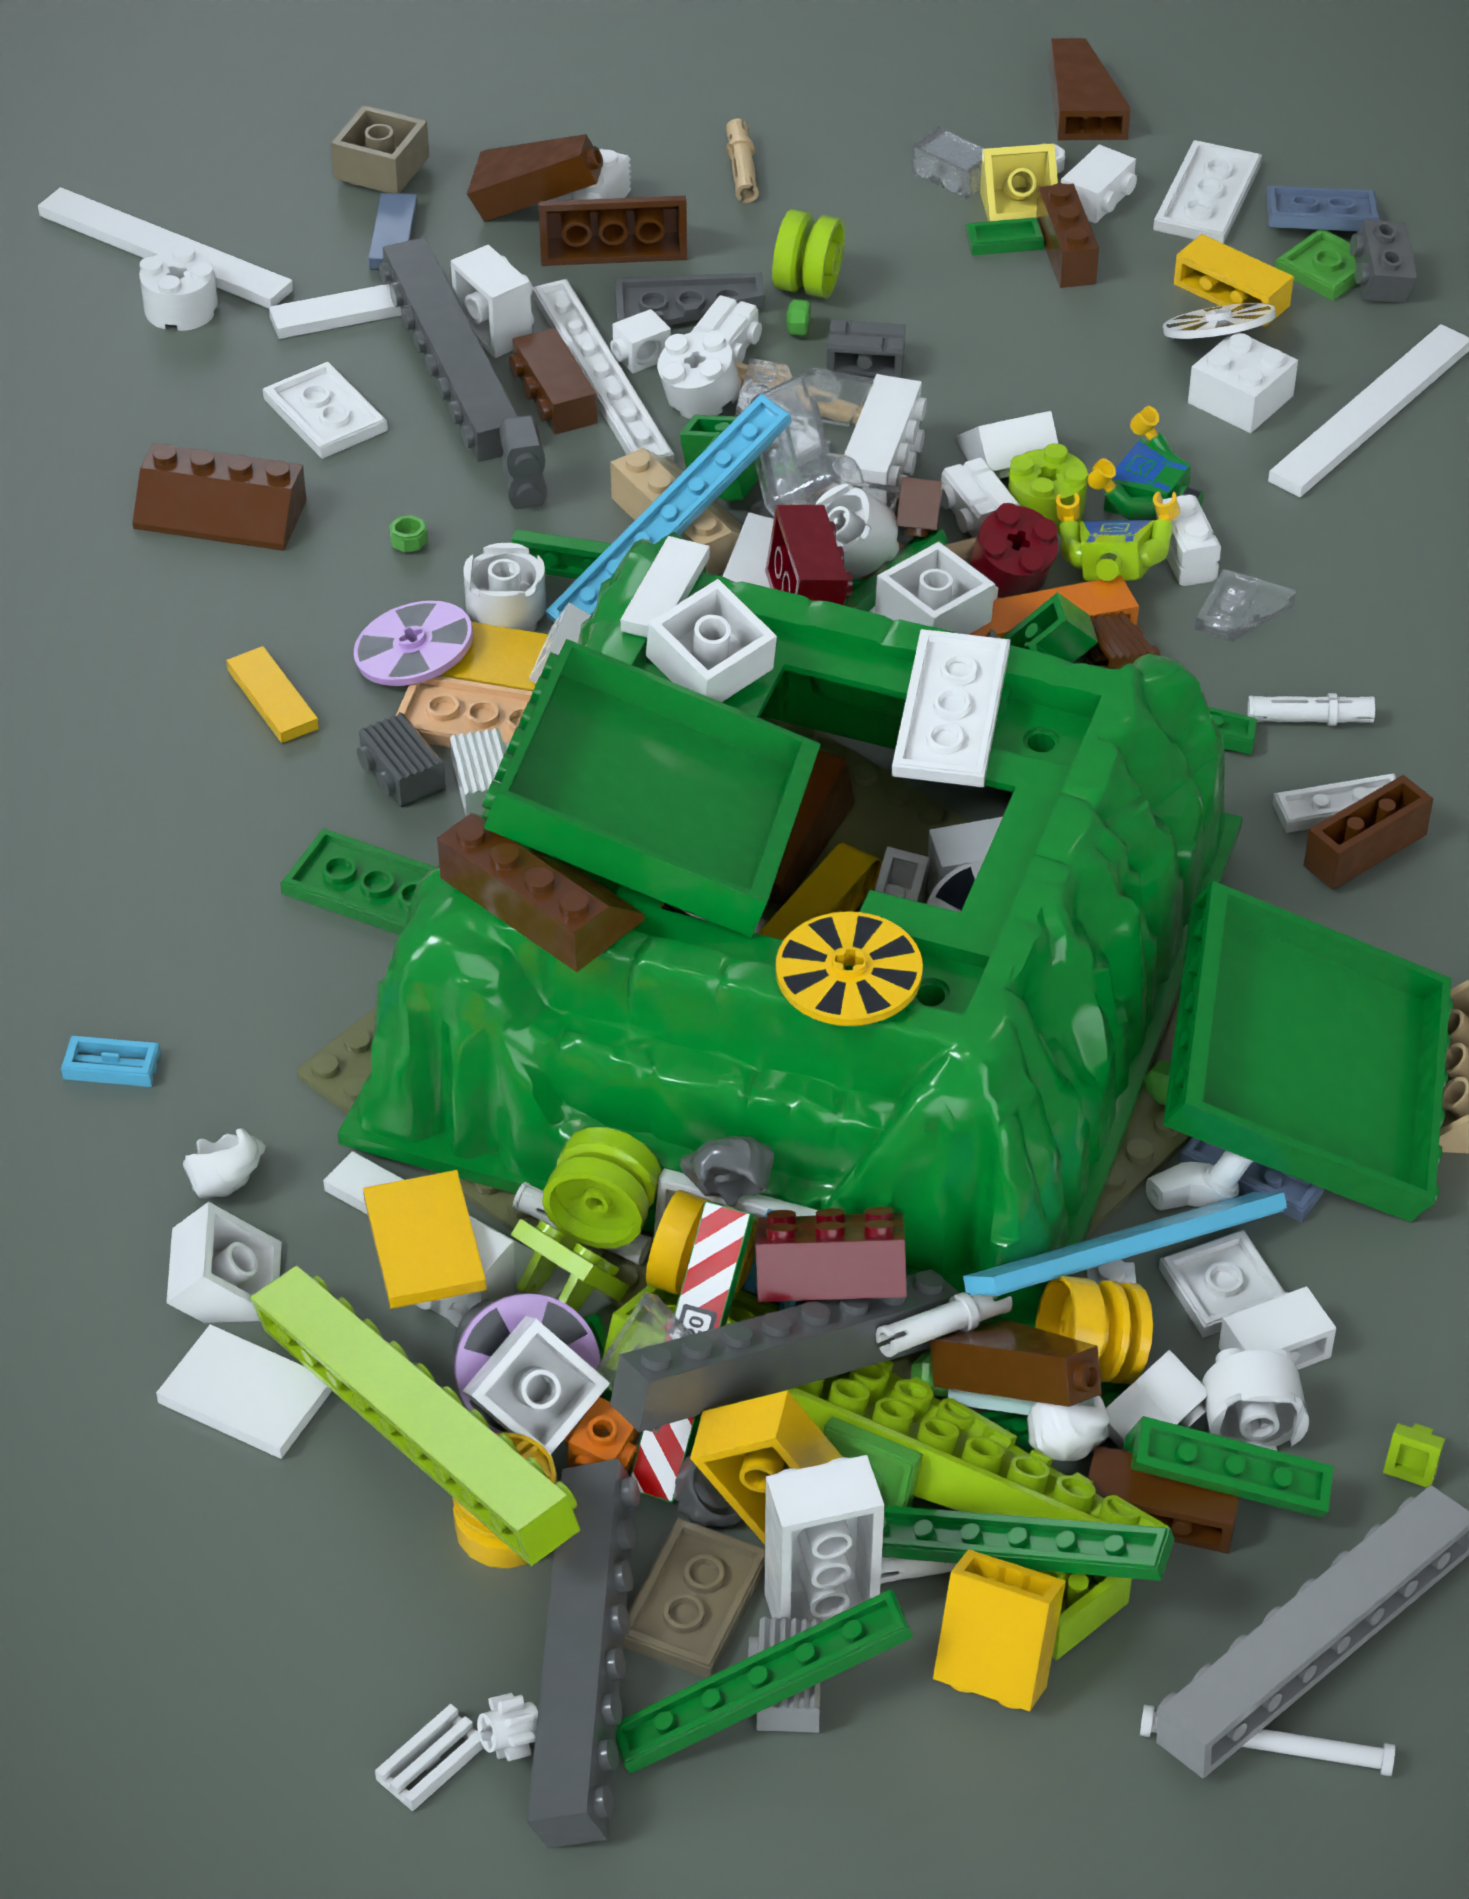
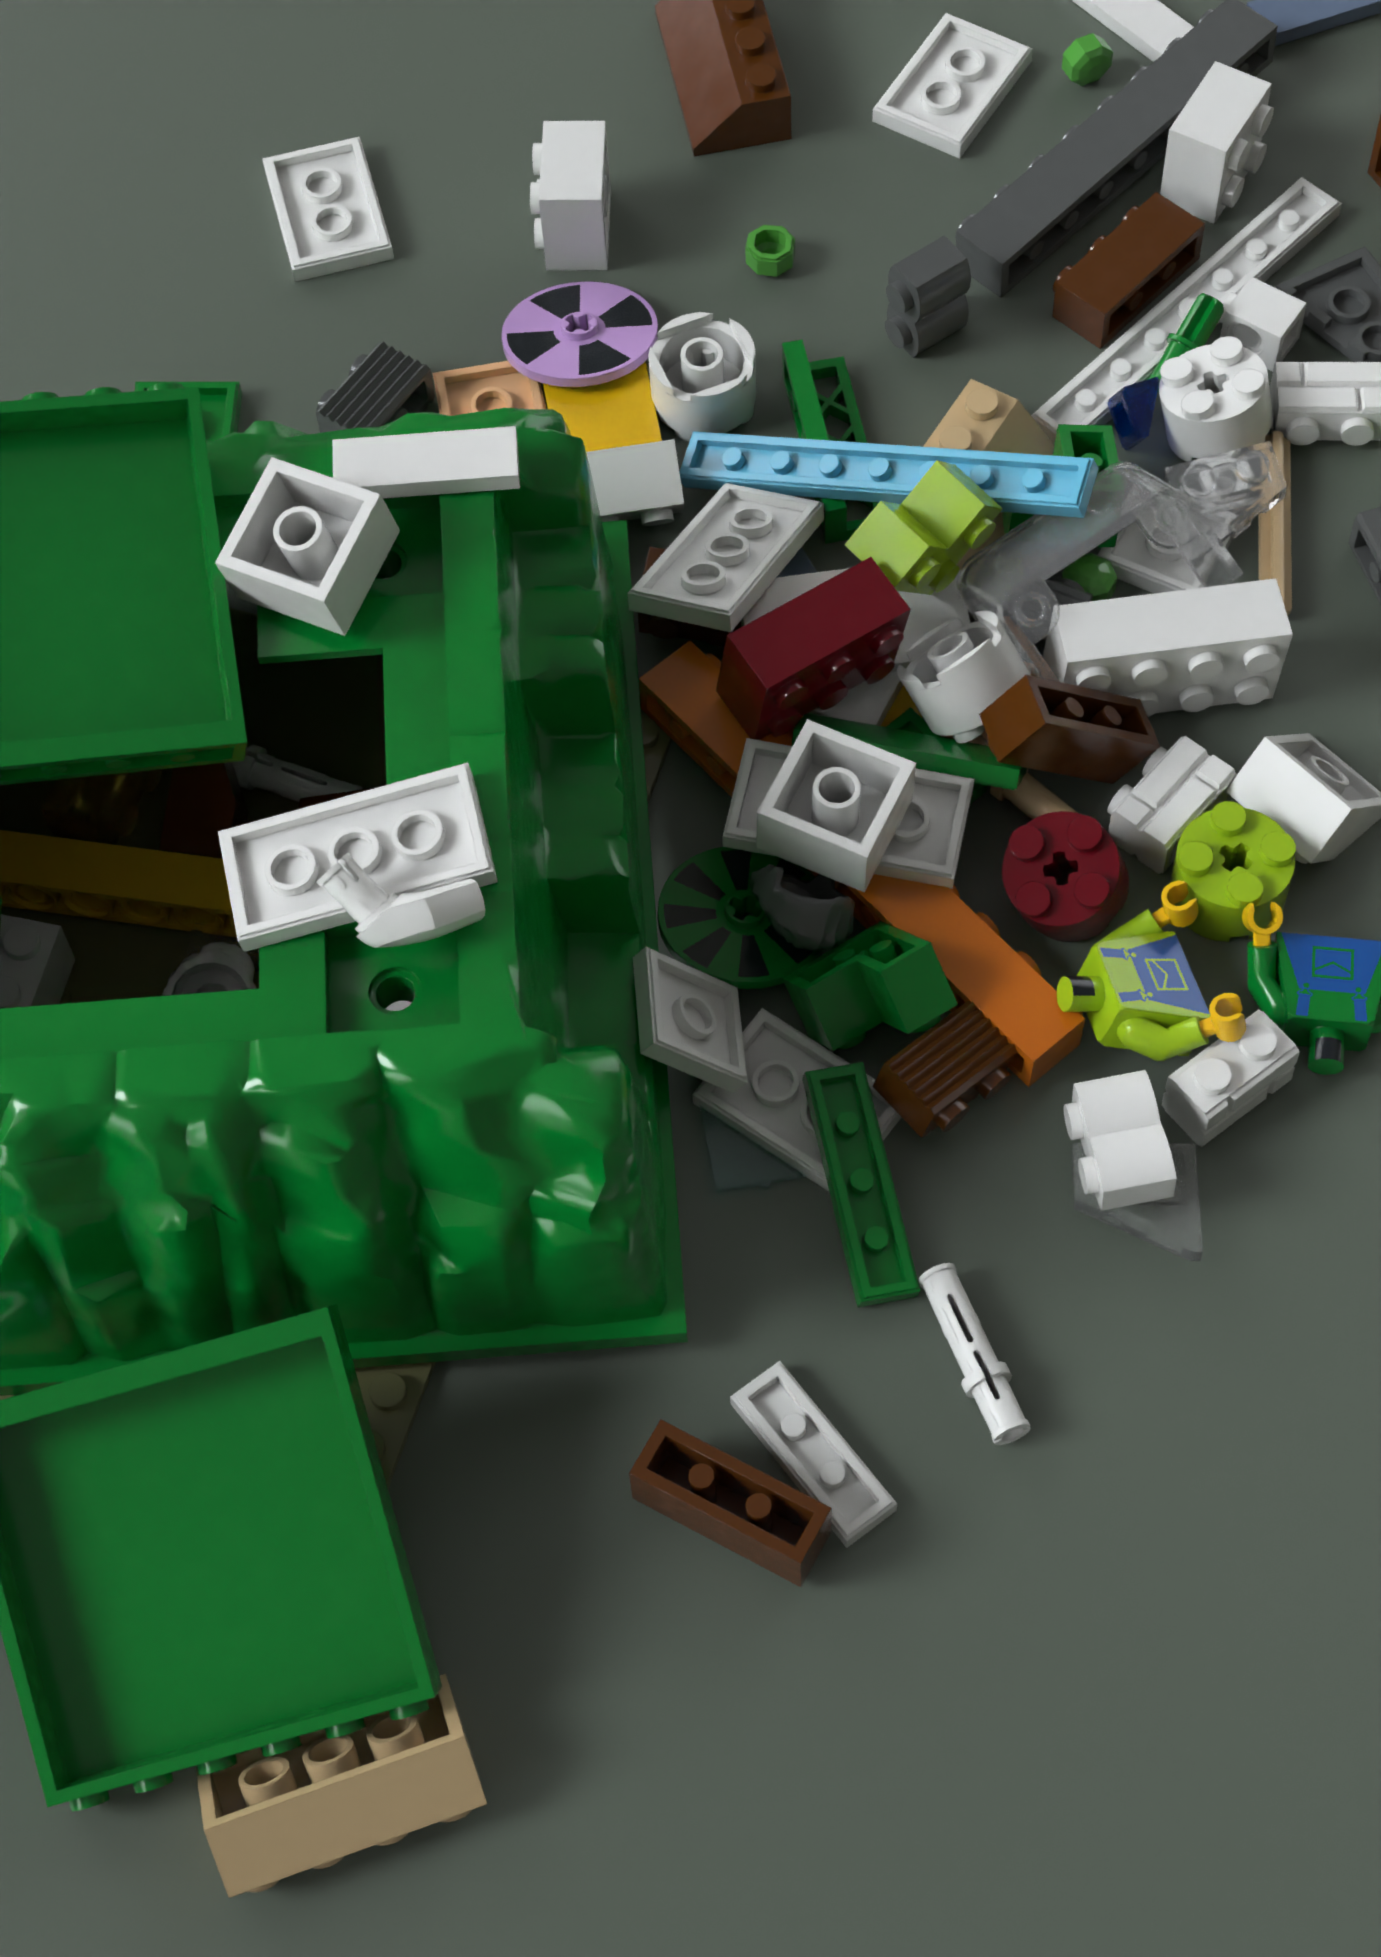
camera: 70 degrees right, 15 degrees up
(187, 742) = (327, 209): none -> white tile
(272, 694) = (438, 247): yellow tile -> none
(304, 595) = (572, 195): none -> white brick
(362, 339) = (1087, 59): none -> bright green tile
(640, 374) = (1193, 330): none -> green axle
(675, 410) = (1133, 411): none -> clear blue slope
(750, 490) = (927, 532): none -> lime brick
(1022, 687) = (405, 918): none -> white arm
(1215, 585) = (1122, 1140): none -> white brick

